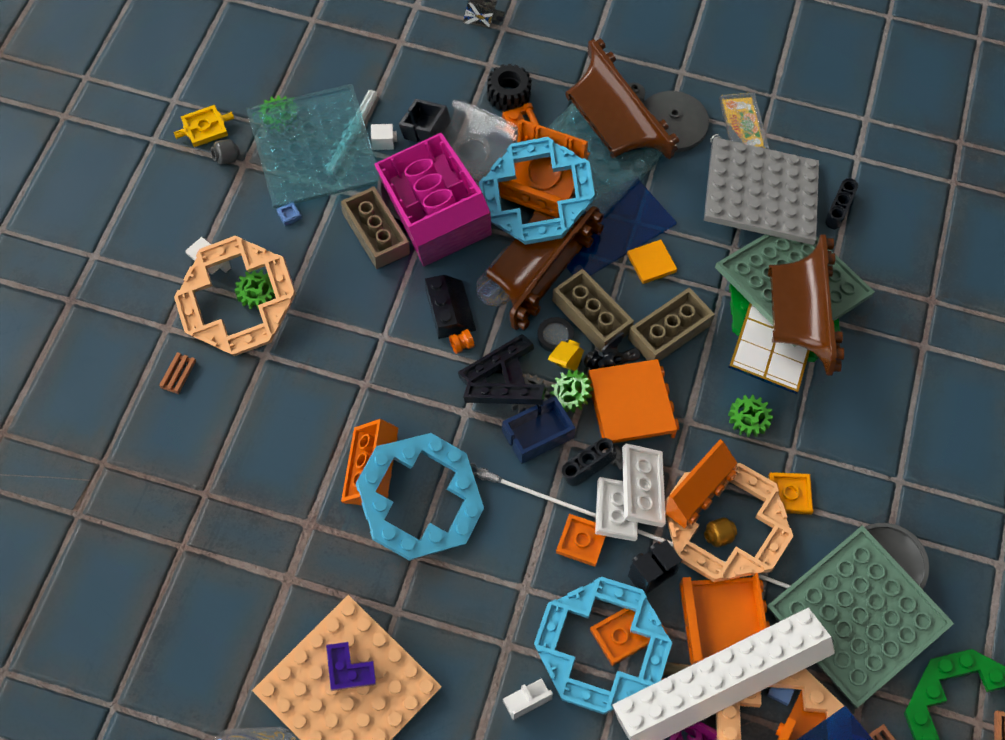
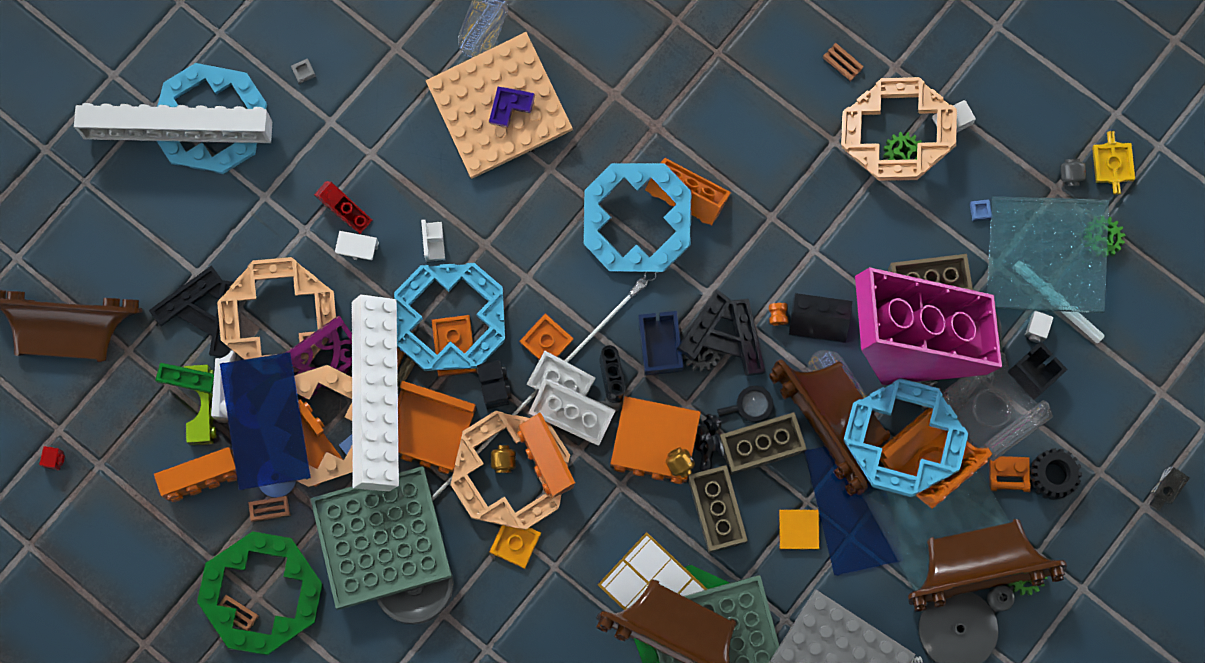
camera: 115 degrees right, 15 degrees up
(567, 355) = (721, 396): yellow slope -> none
(572, 390) = (688, 389): bright green gear -> none
(648, 365) = (680, 462): none -> pearl gold head
(750, 416) = (591, 540): bright green gear -> none

